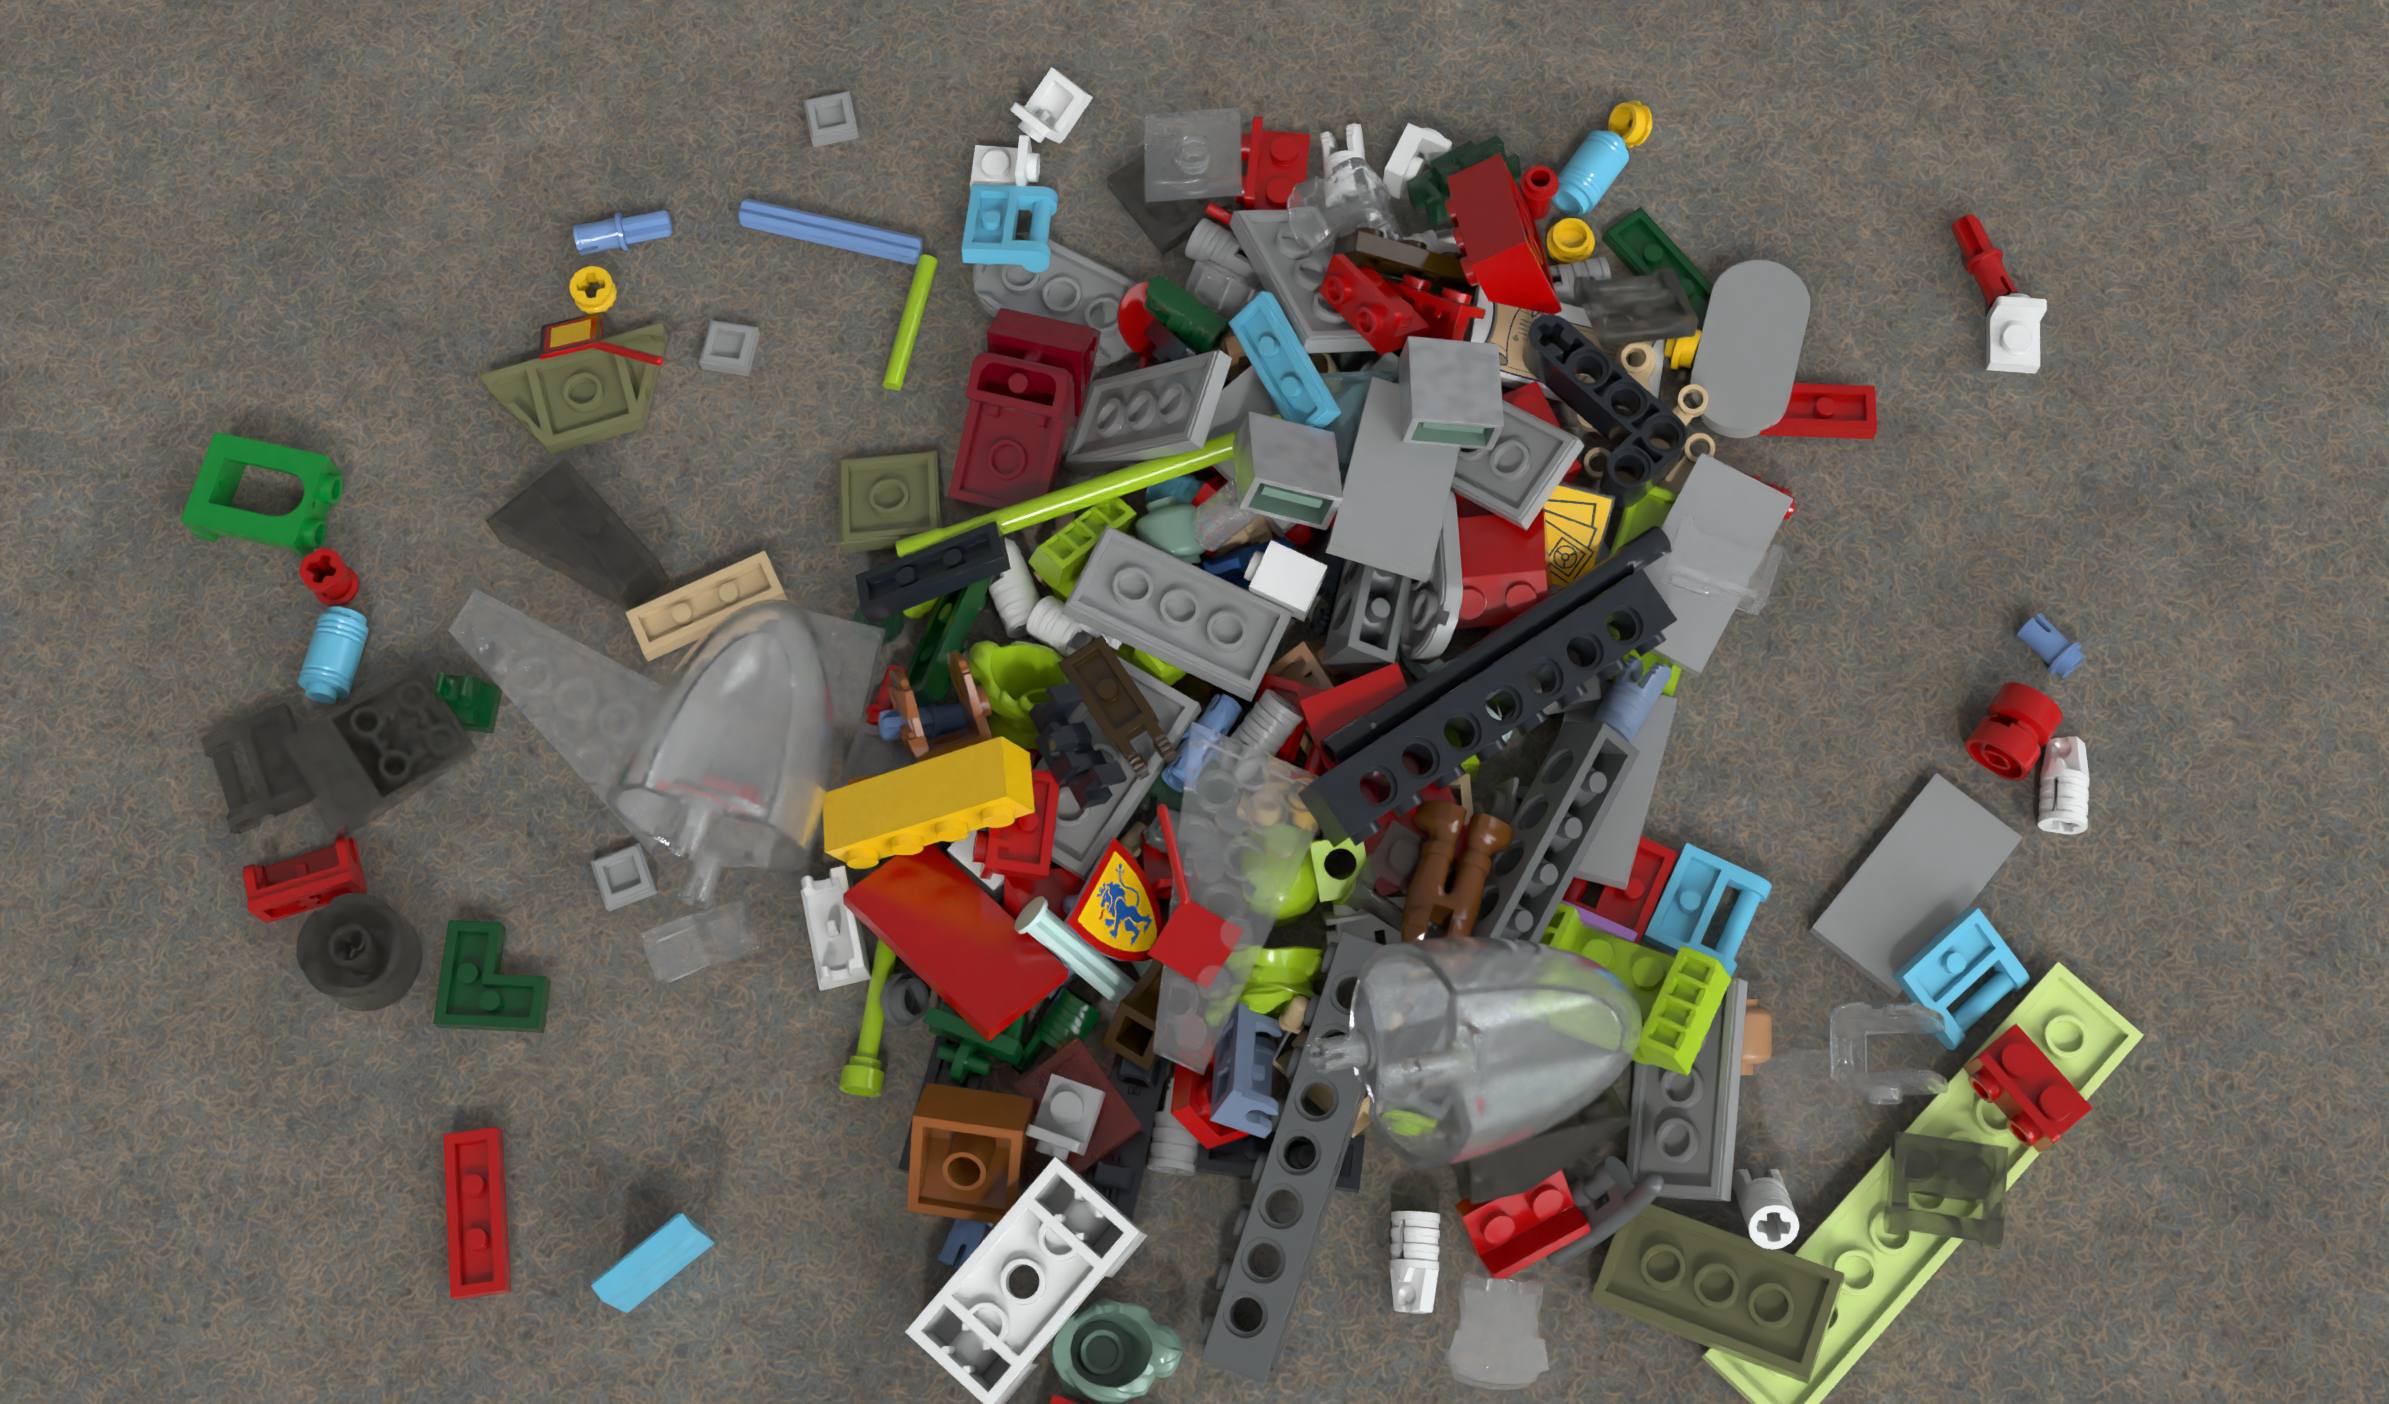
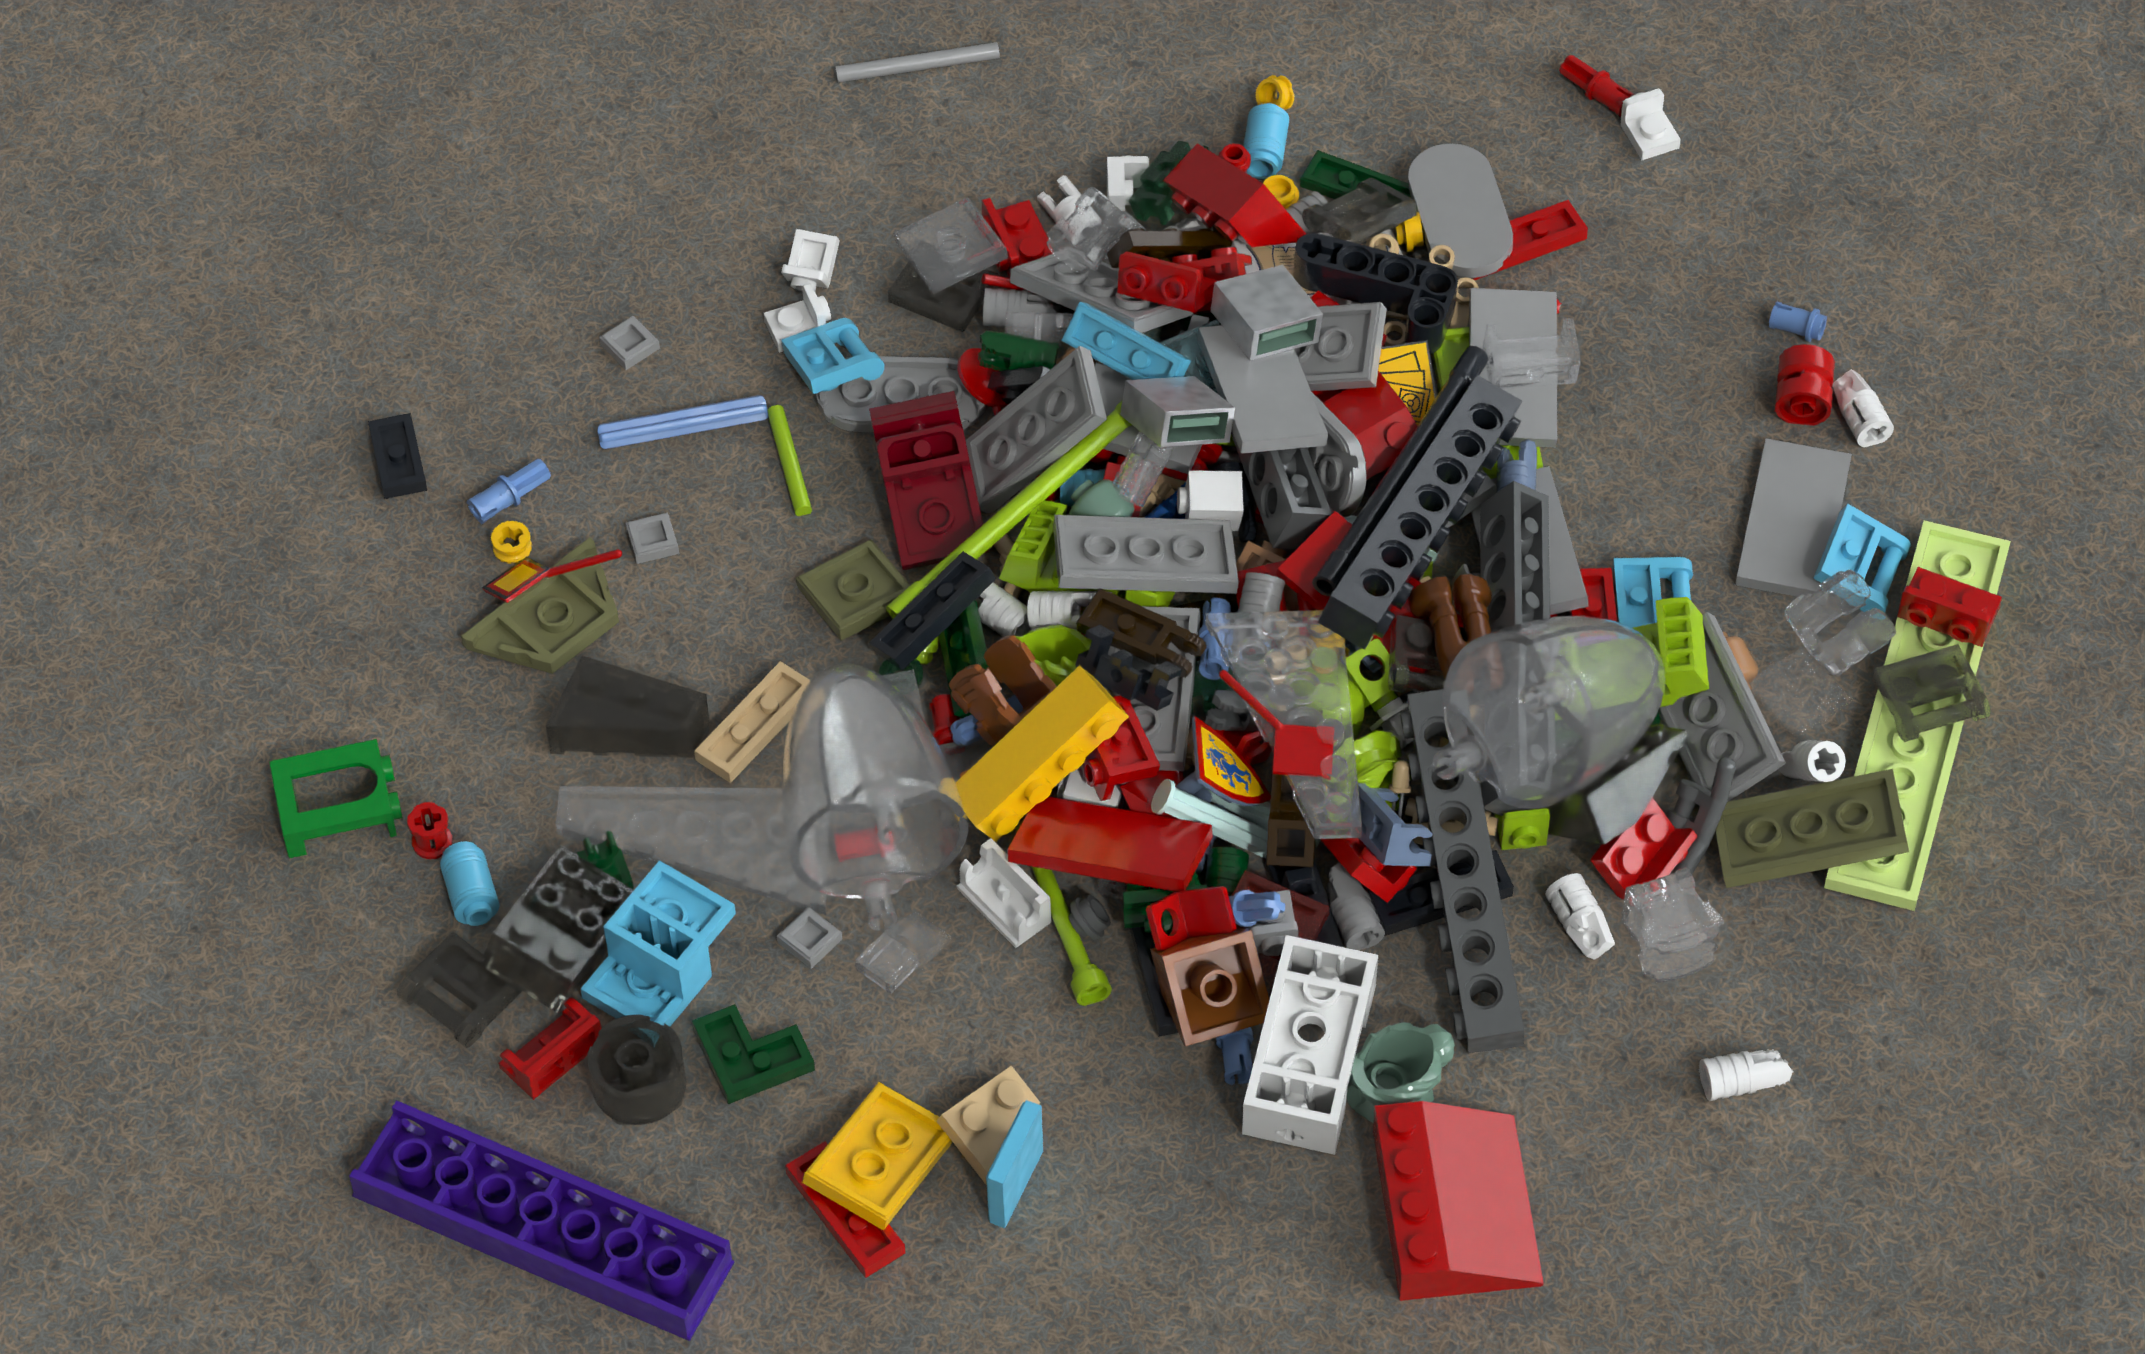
camera: 30 degrees left, 15 degrees down
(185, 1077) = (543, 1223): none -> dark purple tile
(451, 829) = (658, 947): none -> medium azure bracket
(539, 145) = (397, 456): none -> black plate
(540, 1173) = (879, 1156): none -> yellow tile
(675, 1181) = (984, 1118): none -> tan wing
(980, 1071) = (1193, 915): none -> red bracket
(1035, 1096) = (1254, 907): none -> medium blue axle

